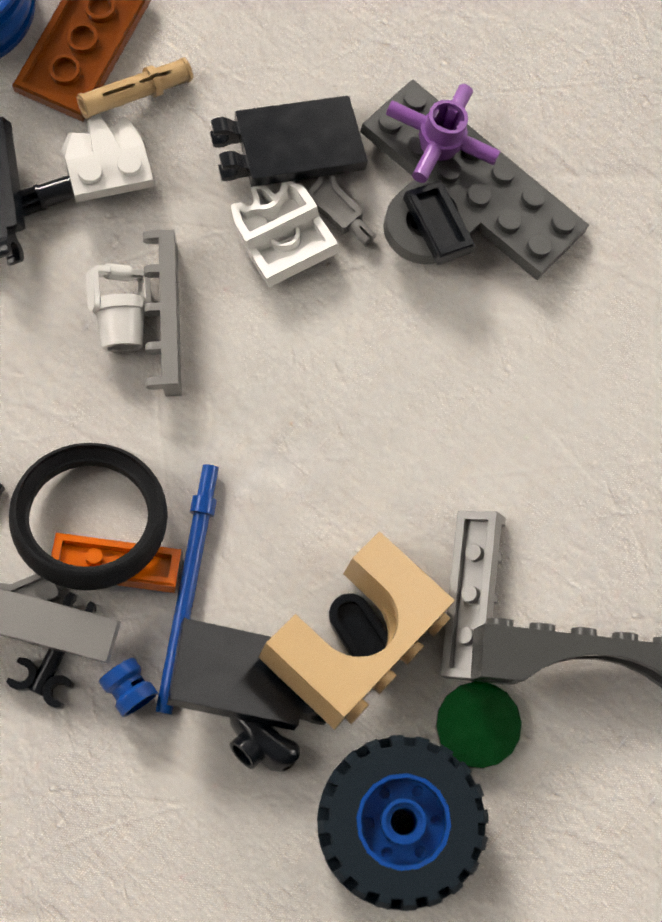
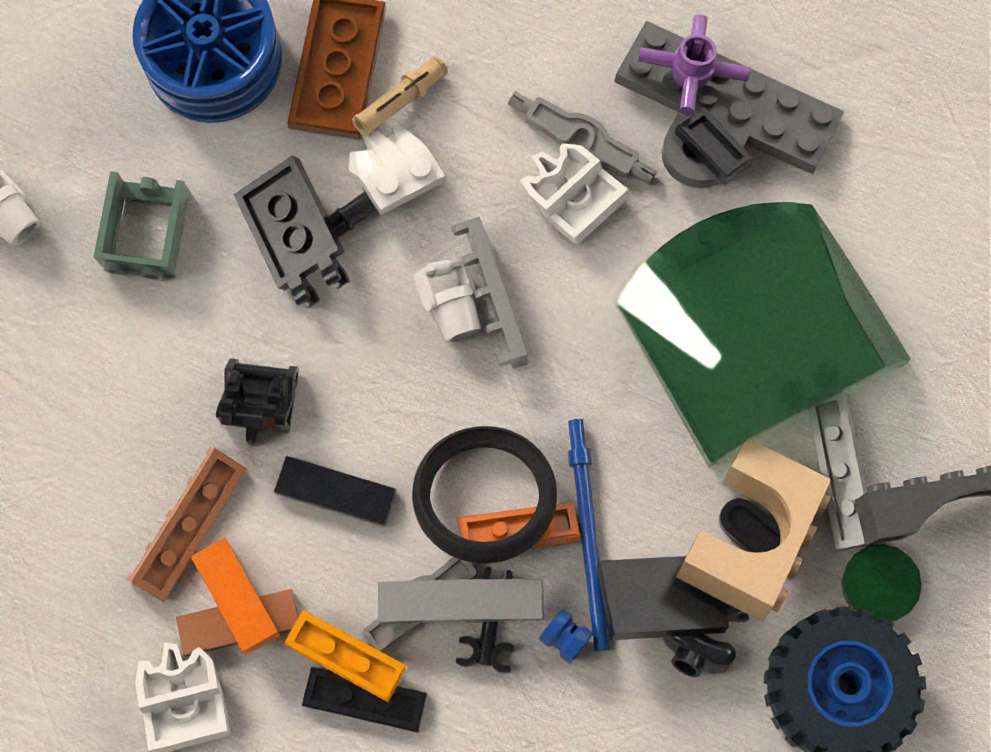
camera: 10 degrees left, 0 degrees up
(290, 141) = (557, 107): black tile -> none
(430, 415) = (755, 322): none -> clear green windscreen

